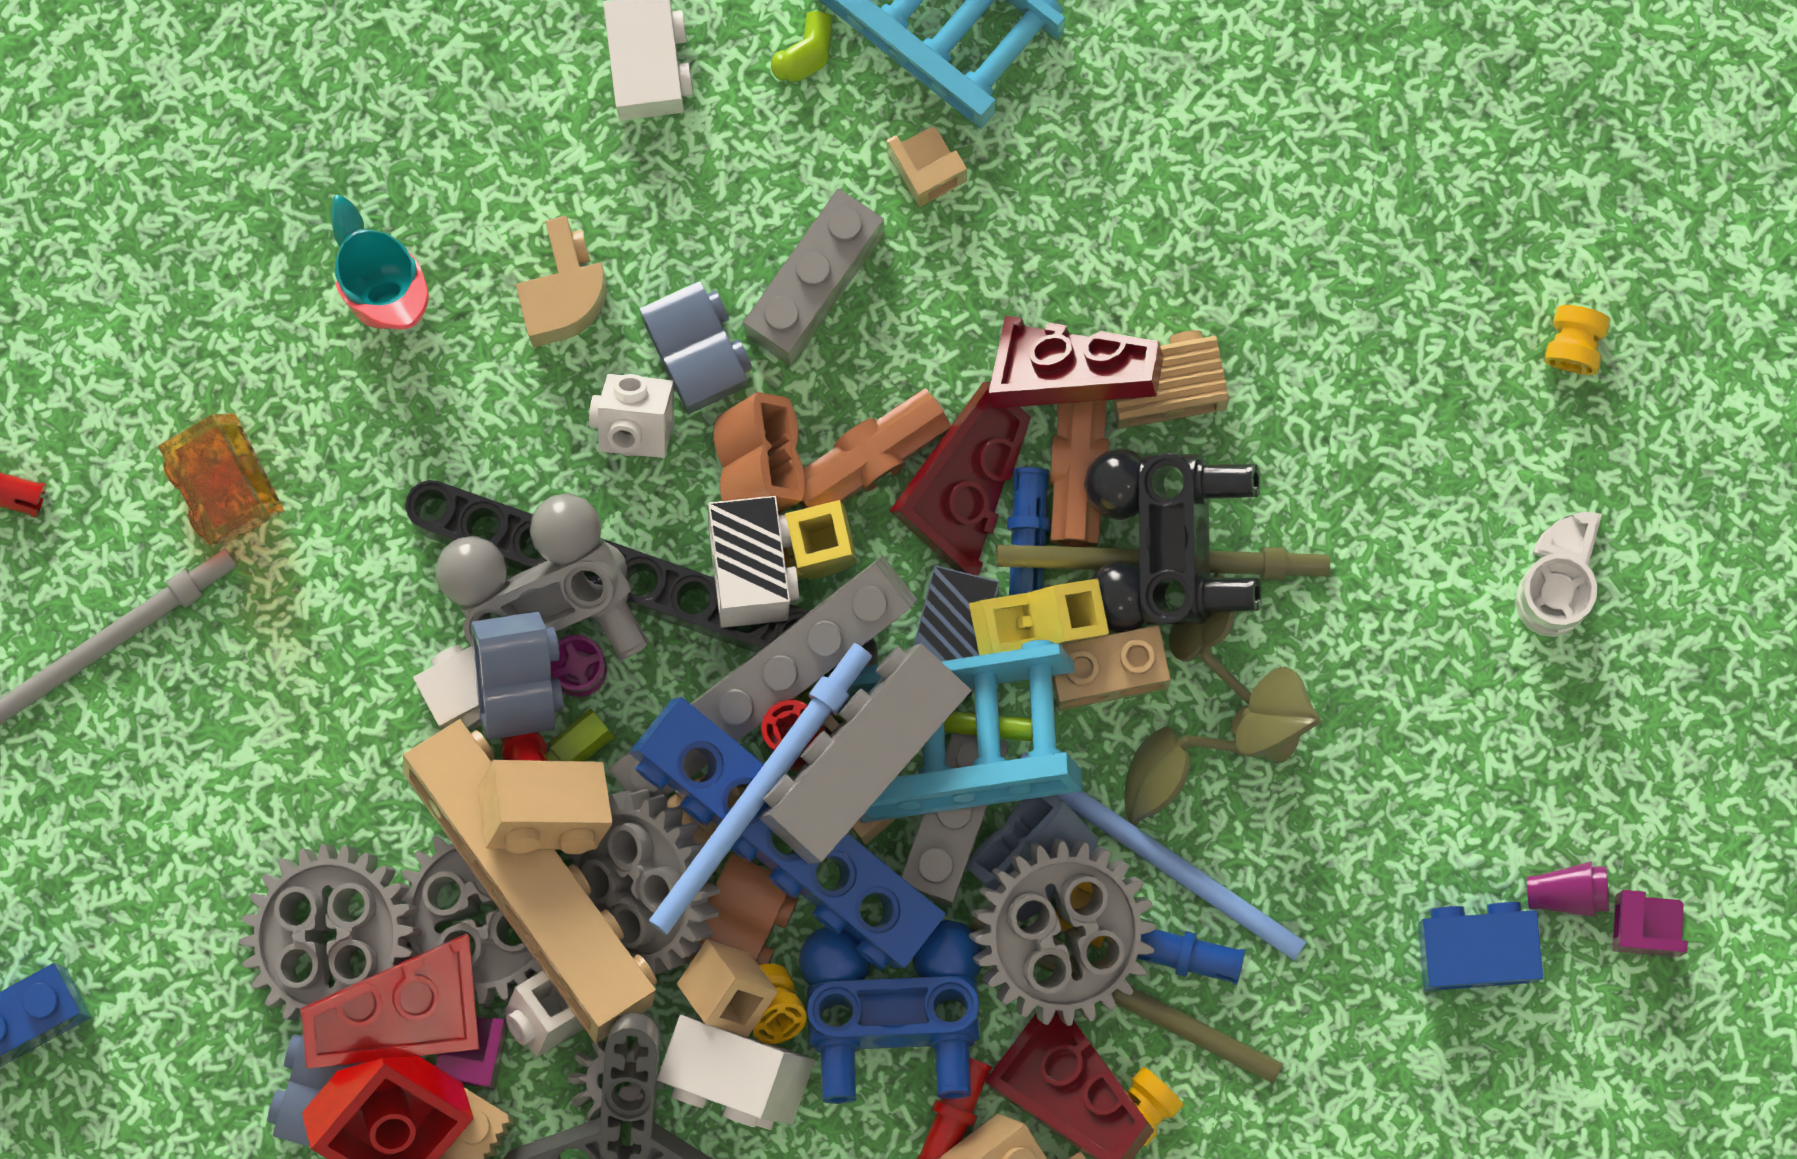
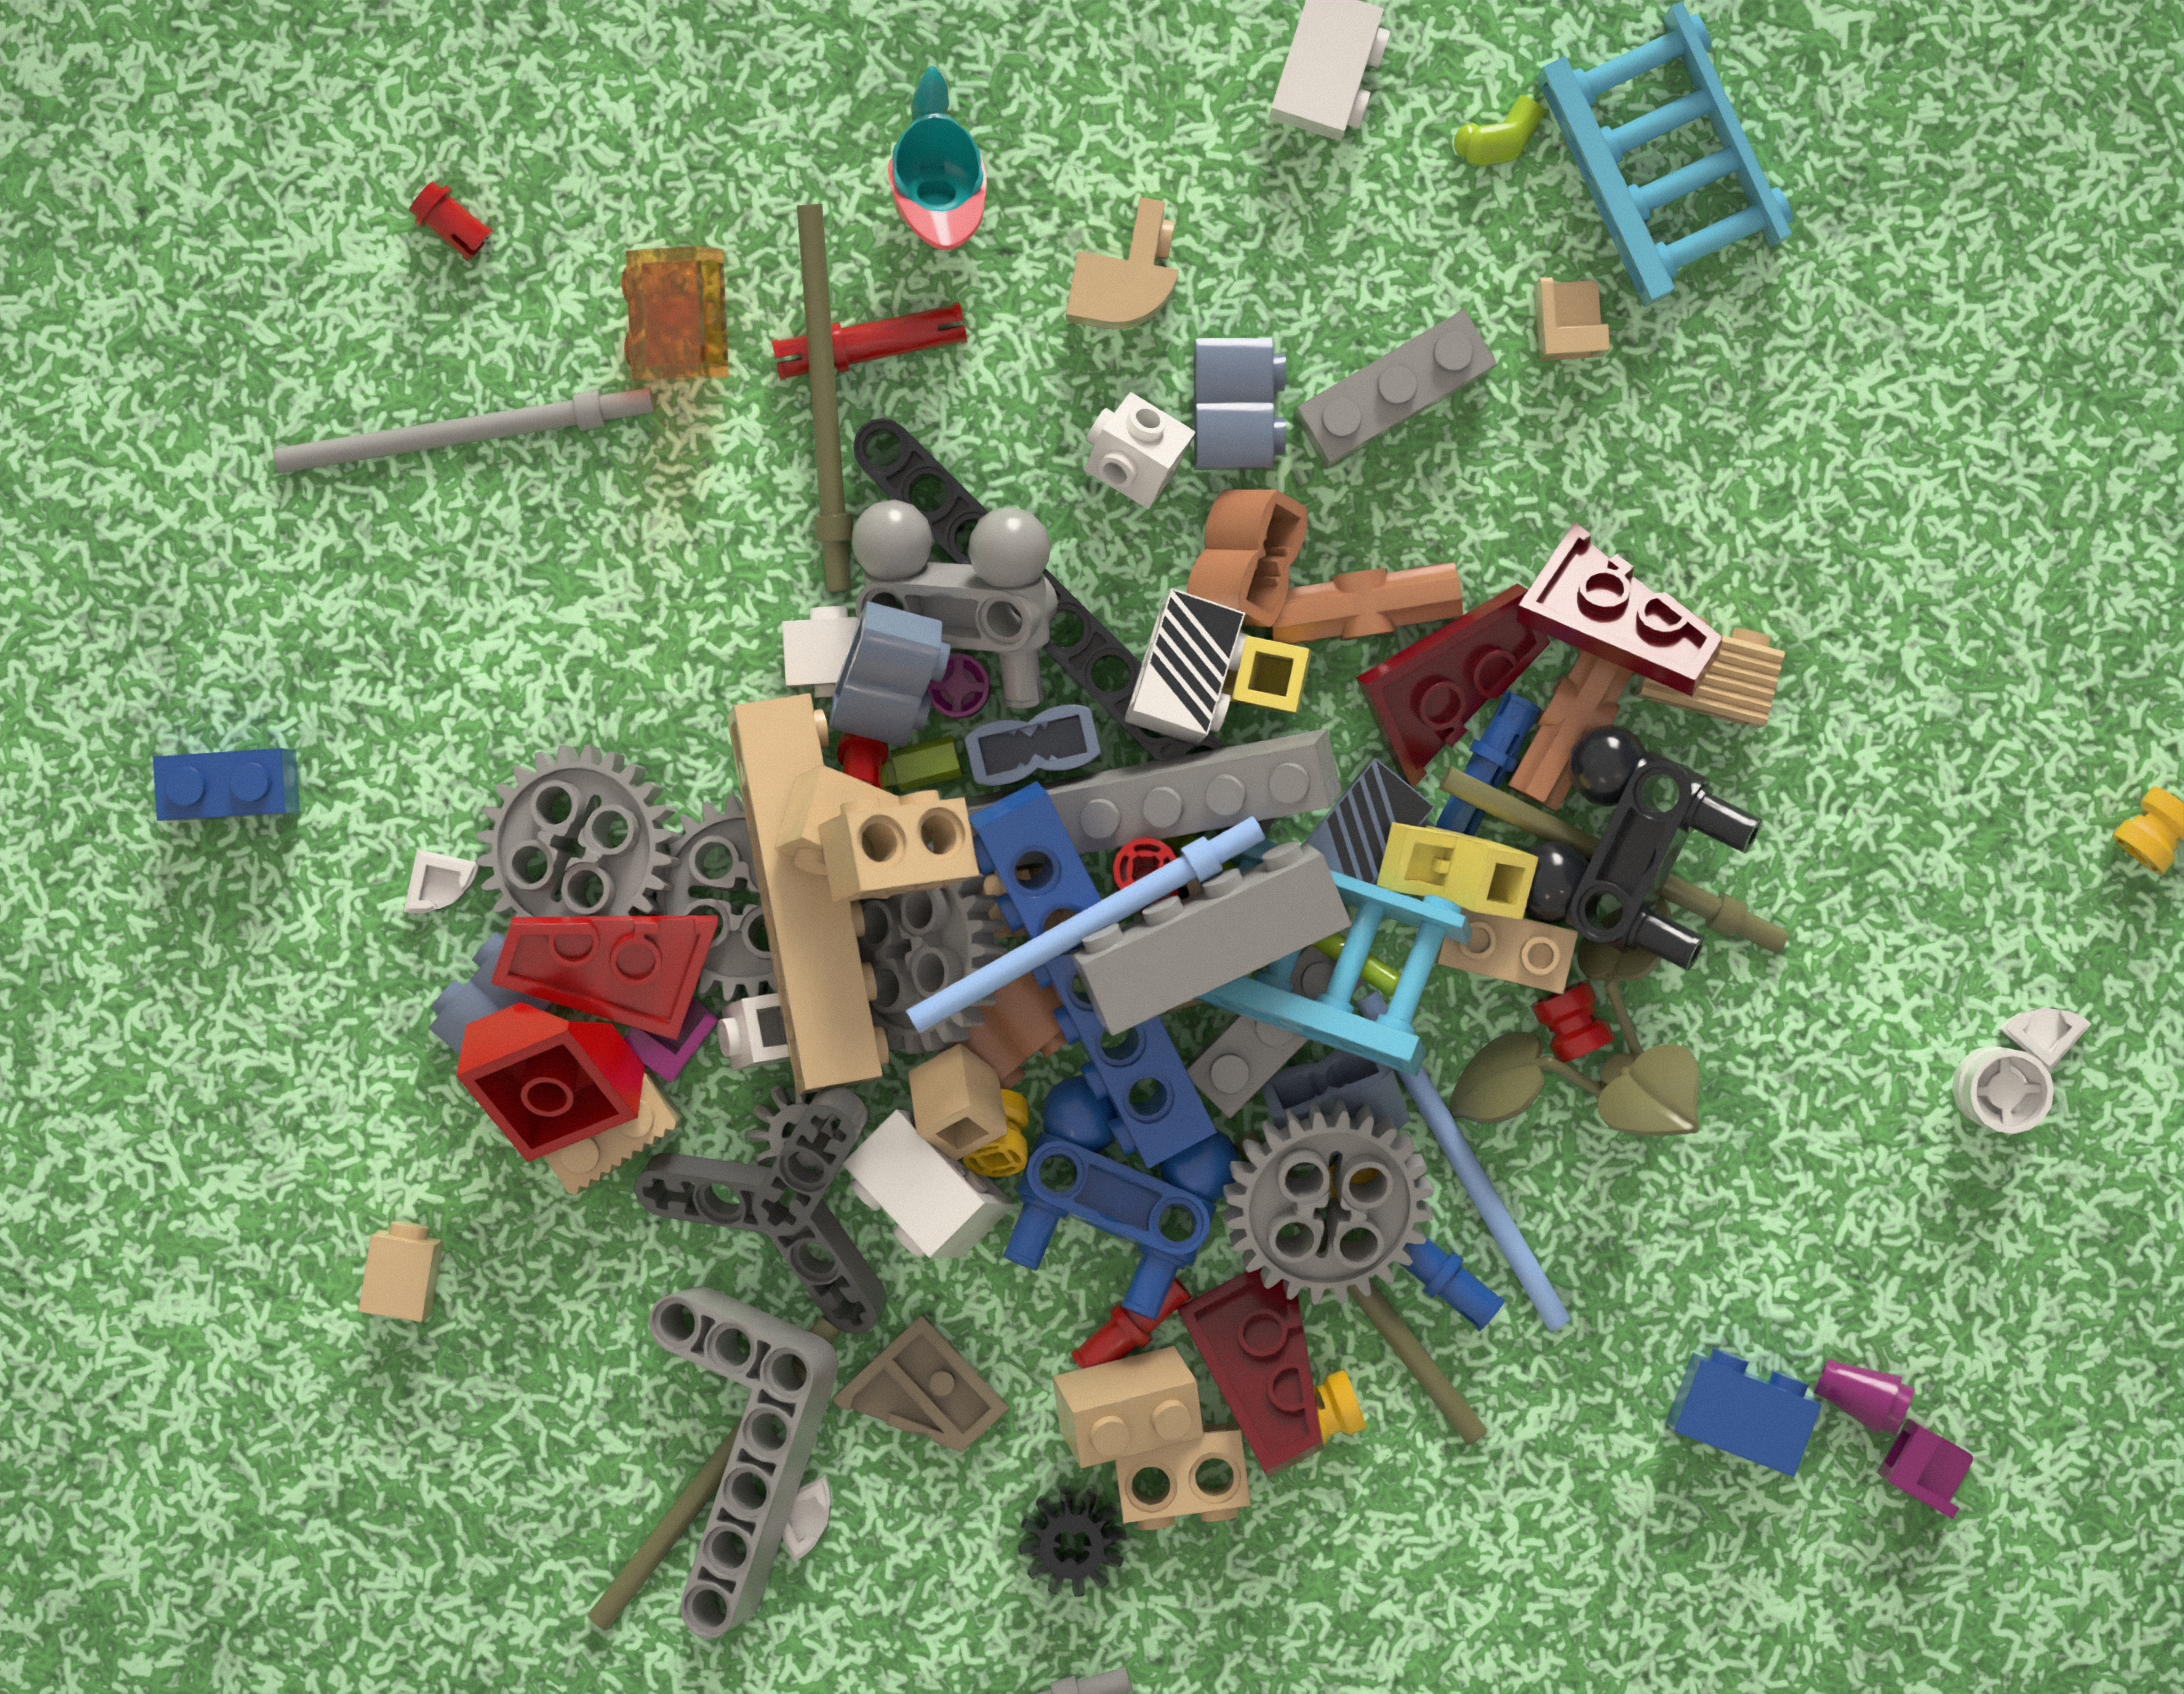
camera: 25 degrees right, 10 degrees up
(229, 1019) = (438, 881): none -> white tile
(383, 432) = (876, 340): none -> red pin
(420, 586) = (832, 524): none -> olive bar
(589, 802) = (900, 858): none -> tan brick
(672, 670) = (1014, 750): none -> sand blue brick
(1189, 700) = (1573, 1021): none -> red wheel

